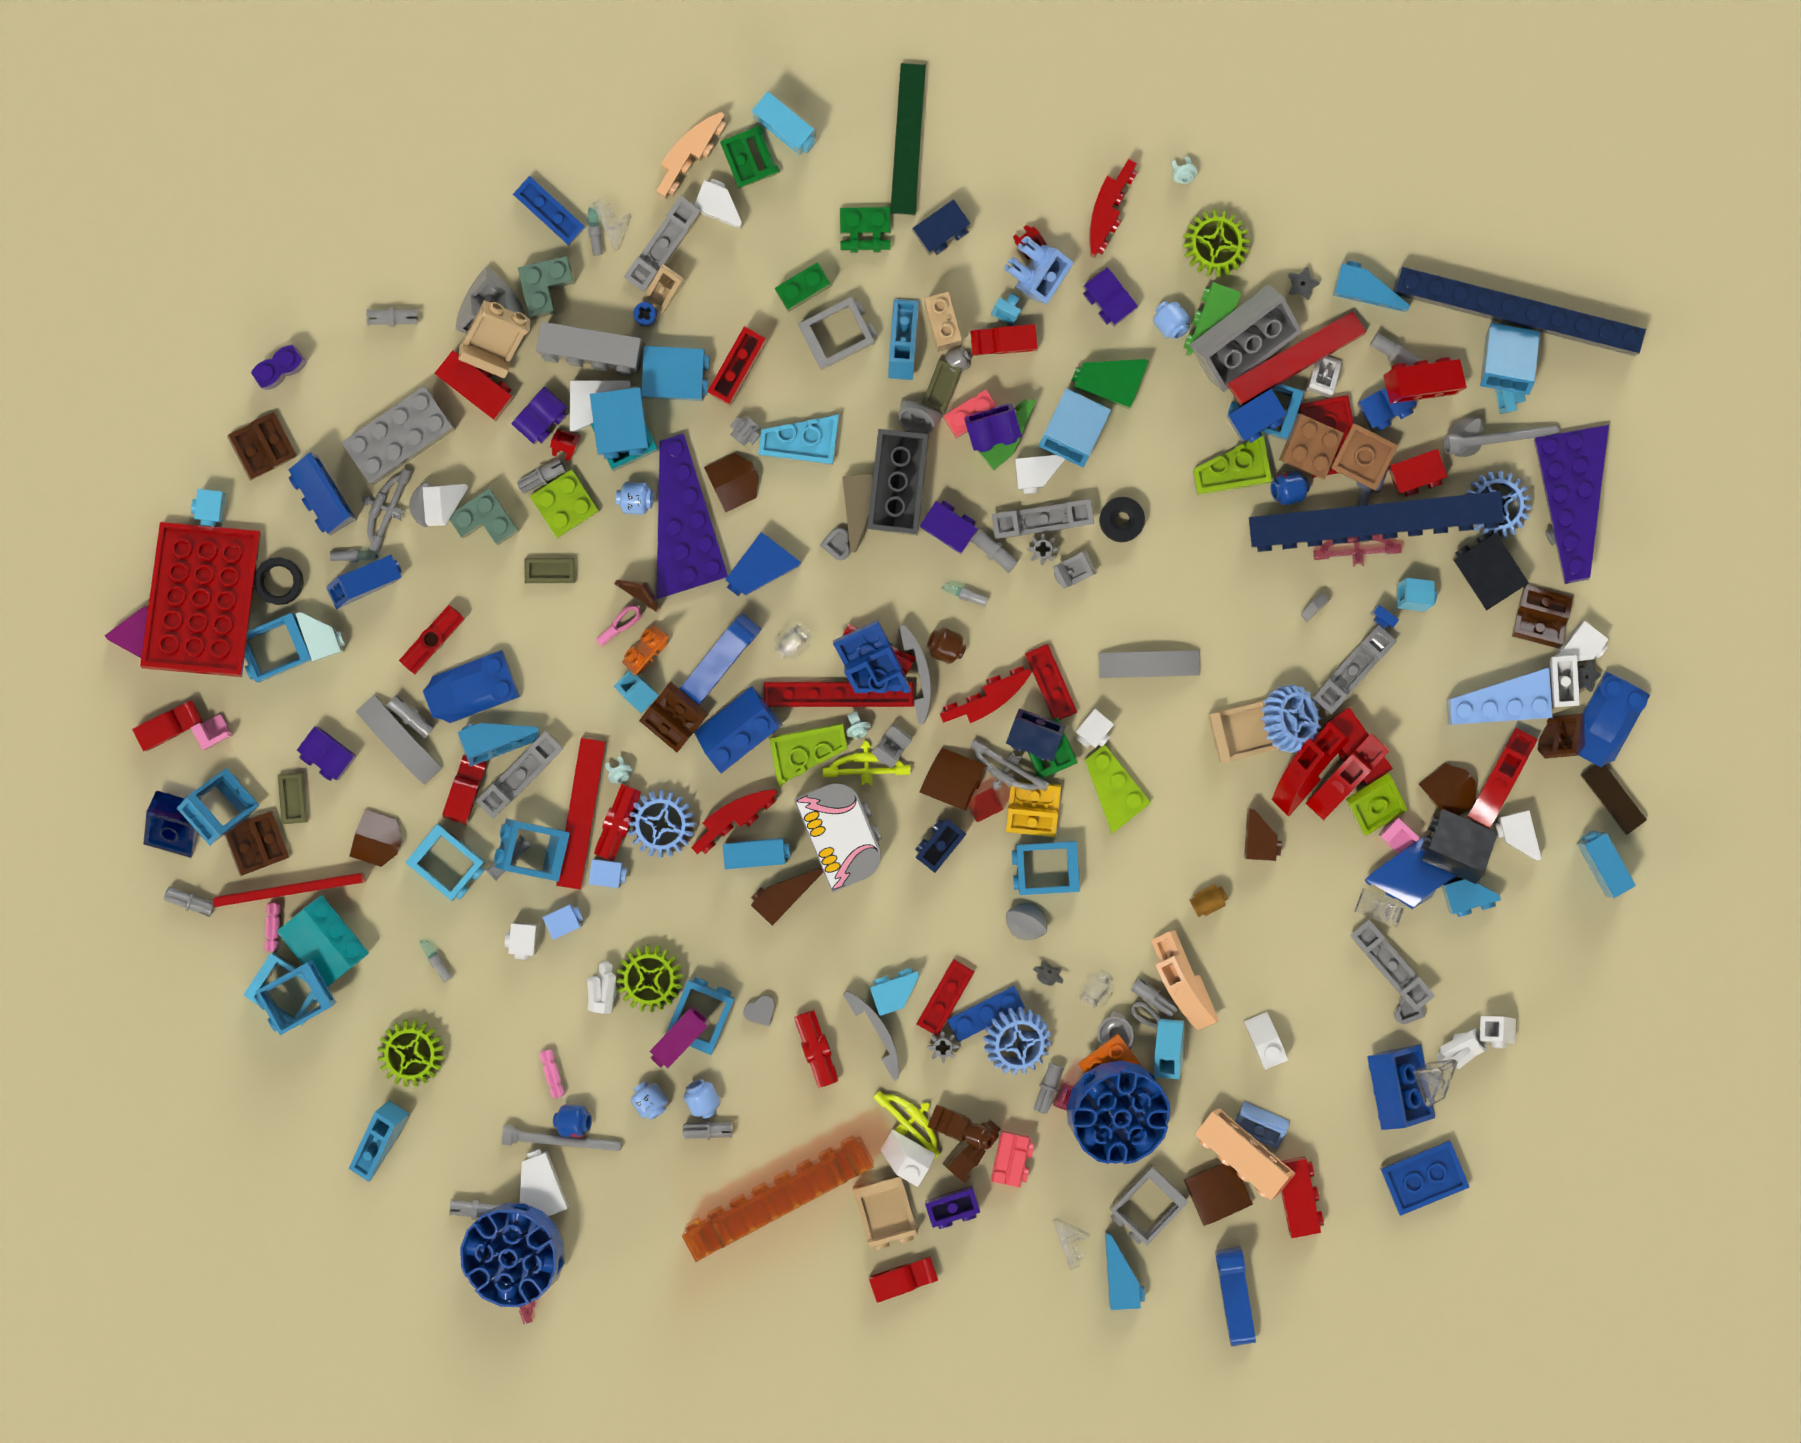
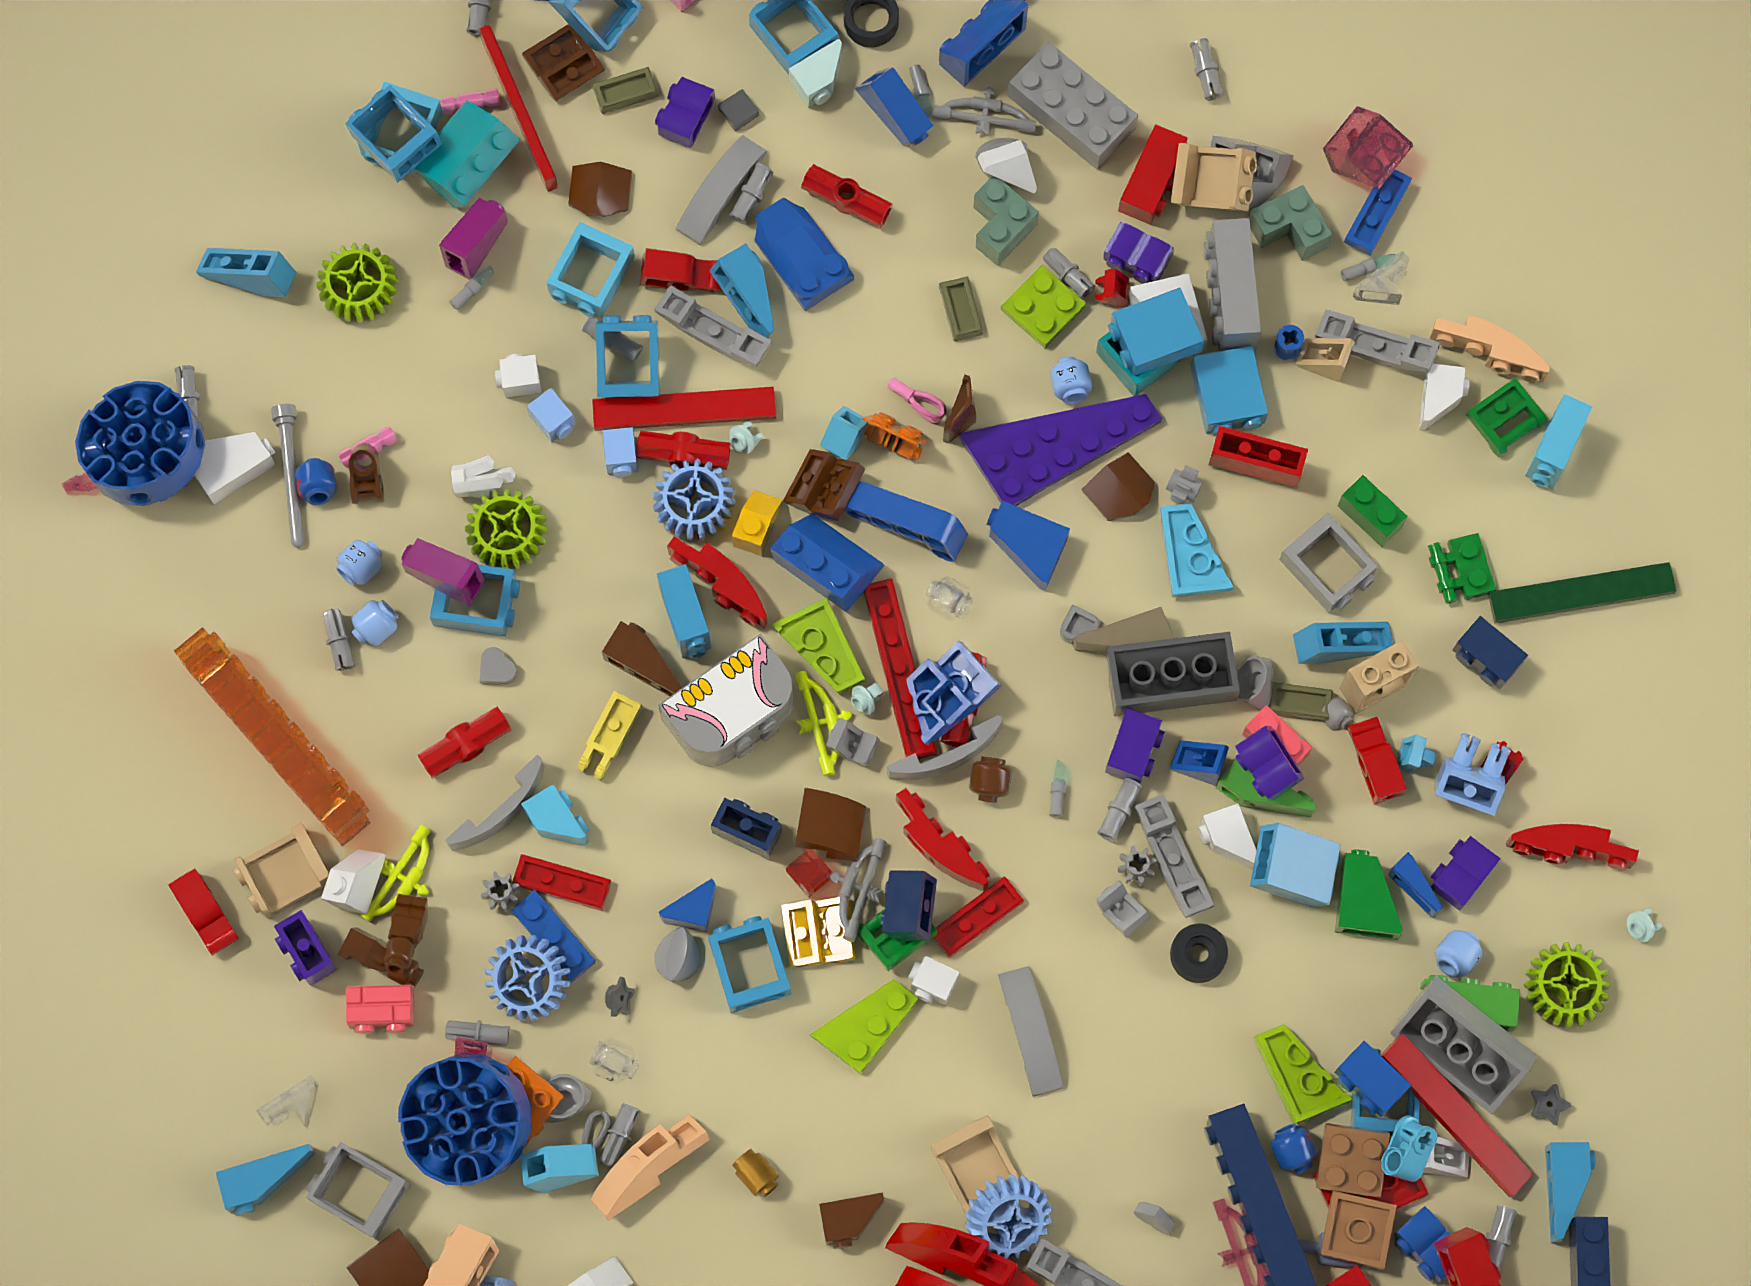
camera: 75 degrees right, 15 degrees down
(333, 709) = (738, 110): none -> dark grey tile
(394, 949) = (473, 237): none -> magenta slope
(497, 206) = (1366, 148): none -> clear pink slope
(580, 1081) = (365, 481): none -> reddish brown piece
(690, 777) = (756, 522): none -> yellow slope
(835, 933) = (610, 732): none -> light yellow hinge
(971, 478) = (1200, 760): none -> blue slope
(993, 901) = (692, 909): none -> blue slope
(1104, 340) = (1412, 881): none -> blue slope
(1318, 403) = (1408, 1151): none -> medium azure piece

